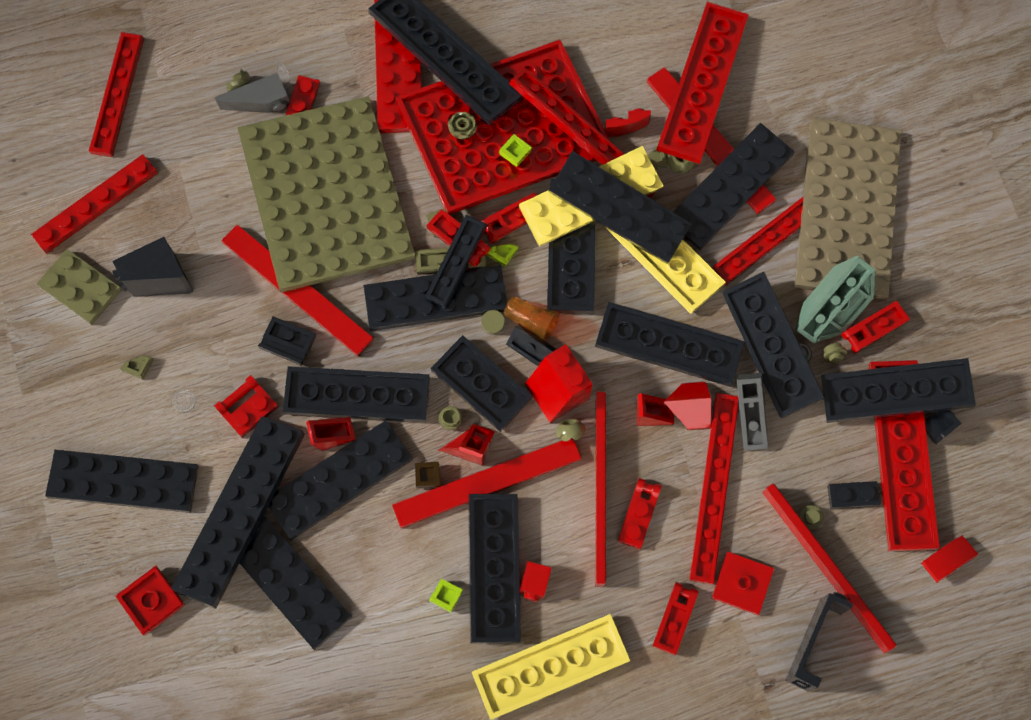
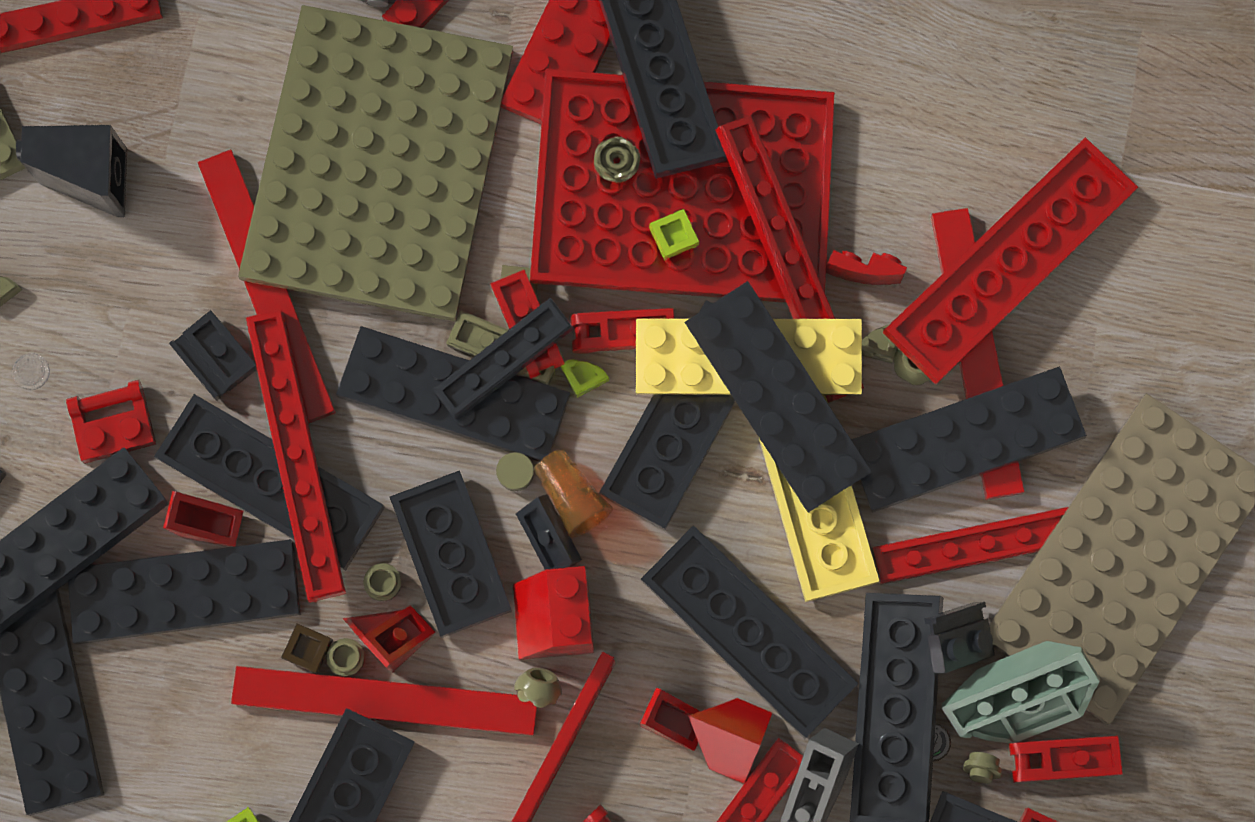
camera: 30 degrees right, 5 degrees up
(365, 371) = (295, 456): none -> red tile
(452, 469) = (345, 657): none -> olive plate
(786, 289) = (959, 637): none -> black plate

